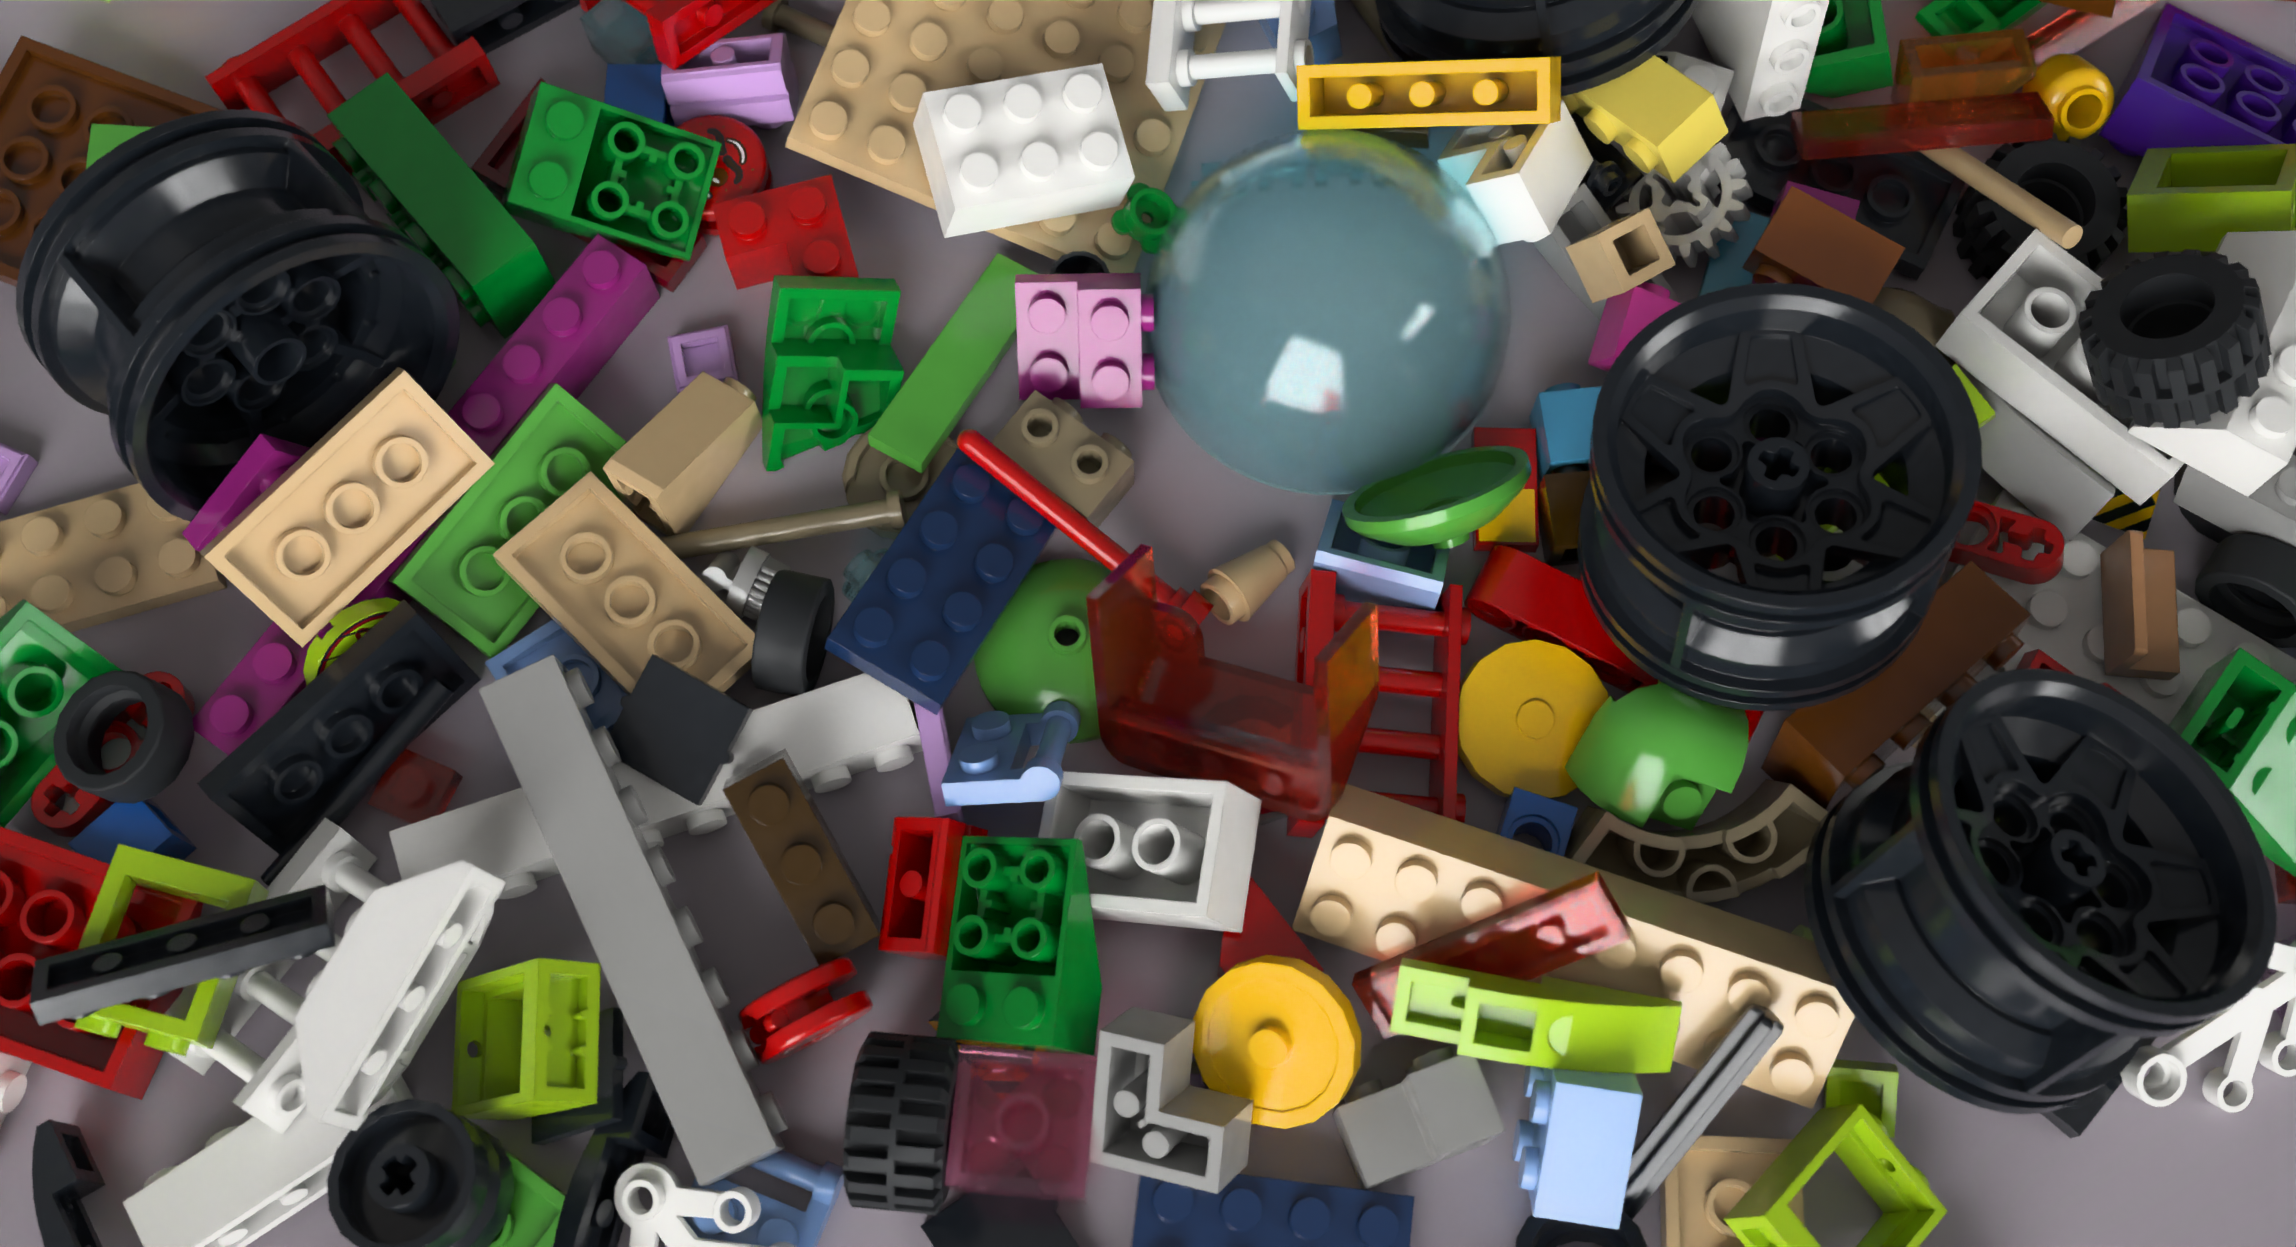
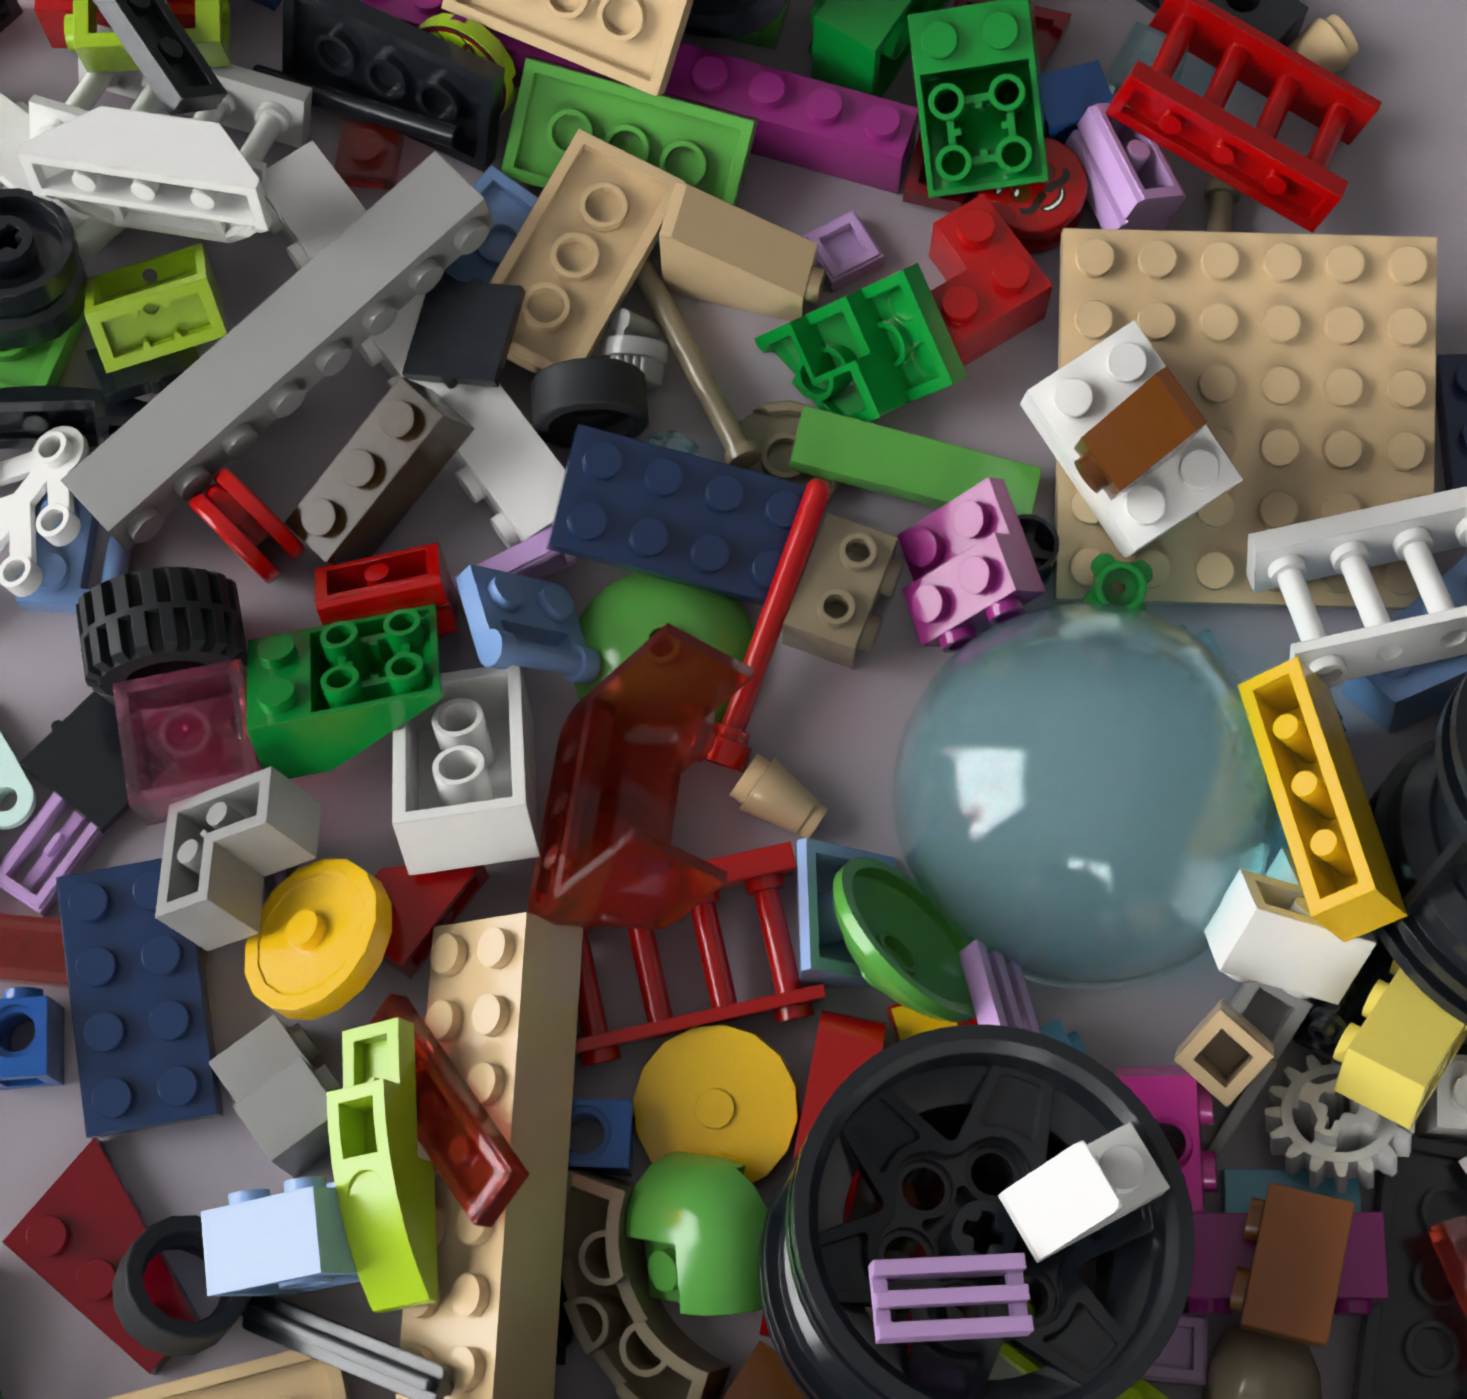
camera: 75 degrees right, 0 degrees up
(1060, 106) = (1138, 435): none -> reddish brown slope
(1523, 431) = (997, 989): none -> lavender tile
(1779, 358) = (1083, 1191): none -> white slope
(1862, 440) = (1013, 1293): none -> lavender tile

